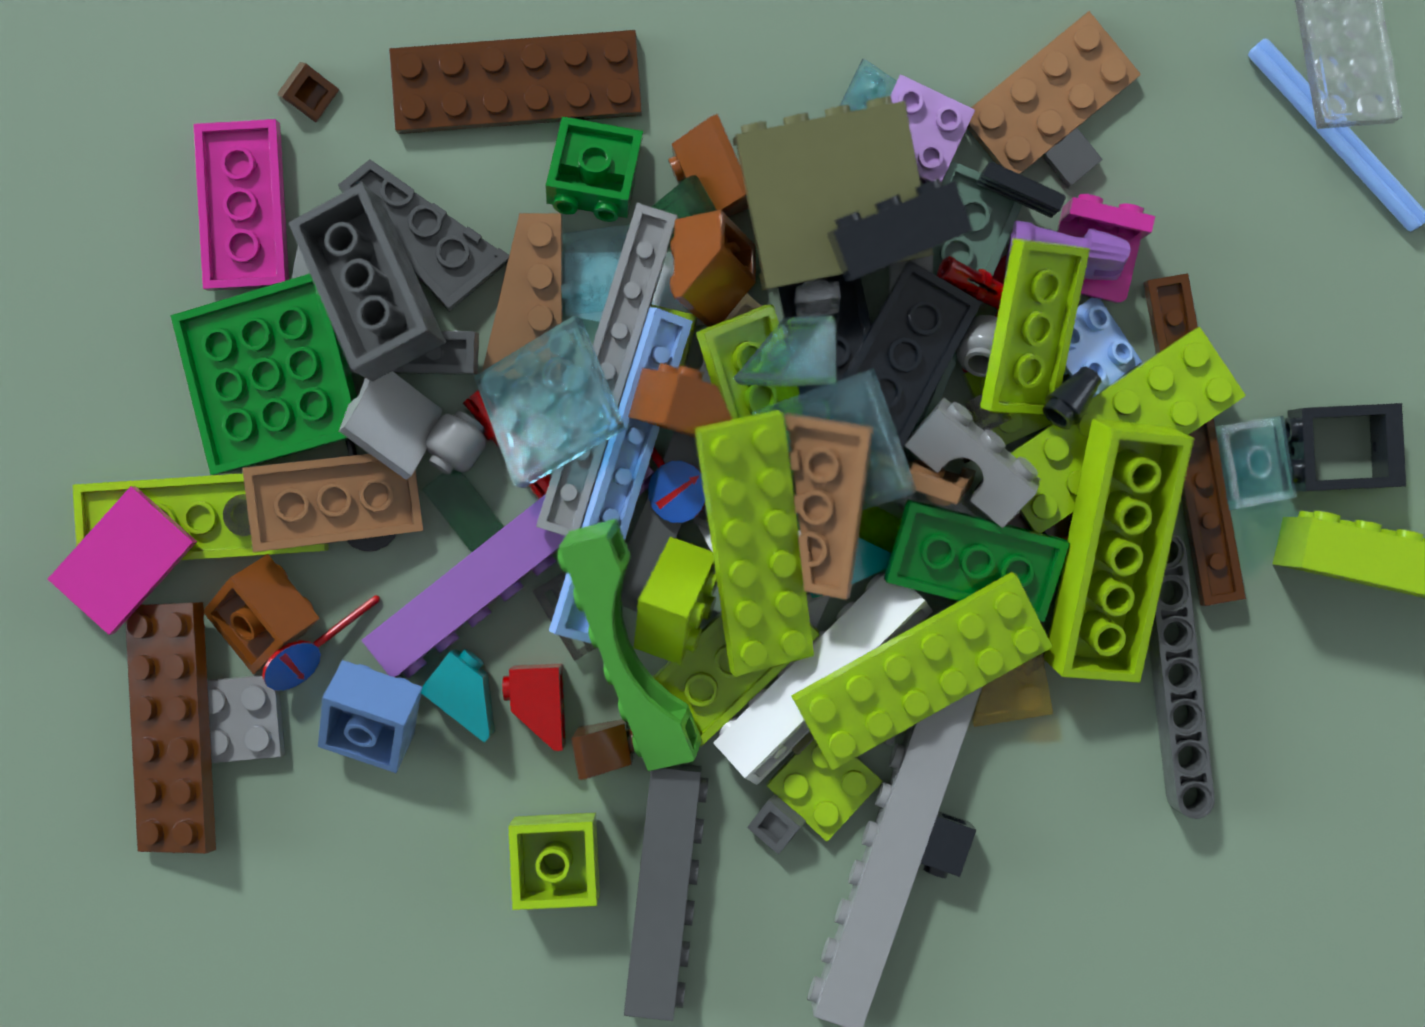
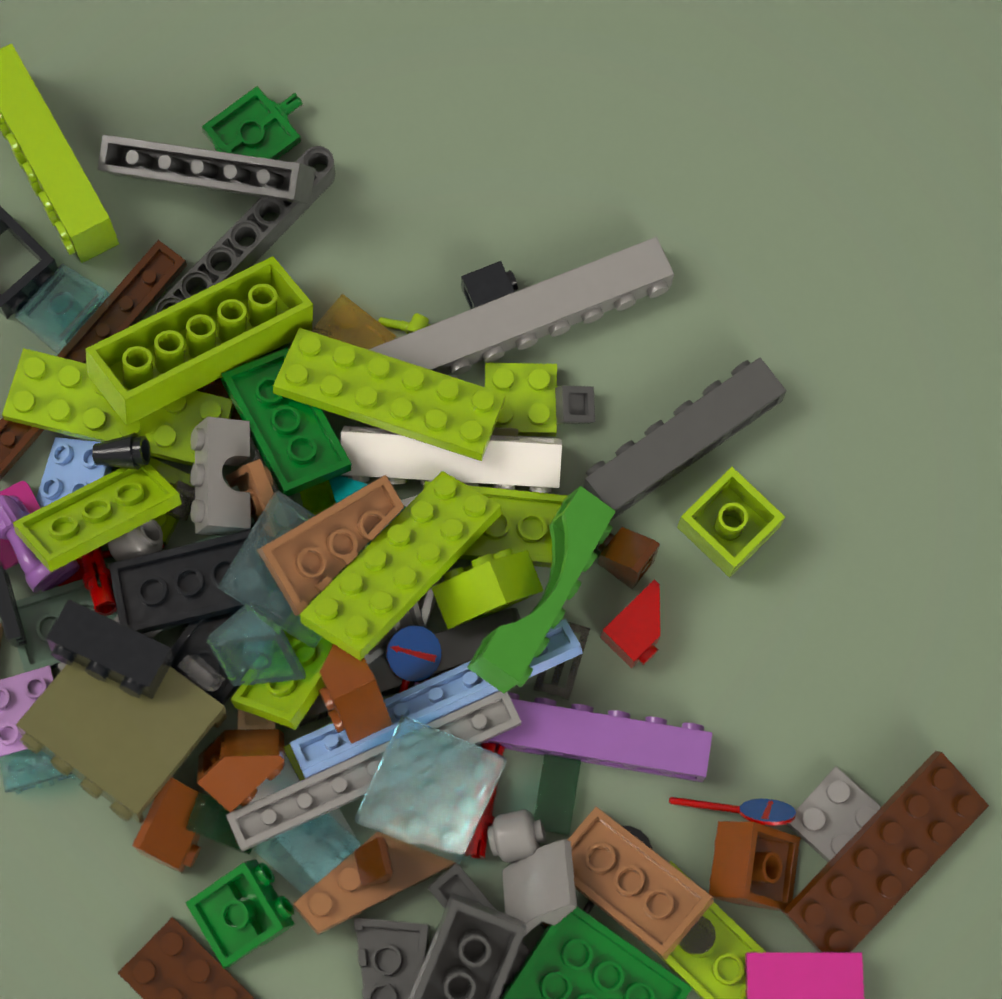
camera: 135 degrees left, 15 degrees down
(369, 716) = (749, 724): medium blue brick -> none
(463, 692) = (678, 683): teal slope -> none
(533, 305) = (374, 862): none -> reddish brown slope
(968, 752) = (416, 323): none -> lime hand
(1273, 694) = (206, 169): none -> dark grey brick
(1274, 766) = (255, 126): none -> green plate

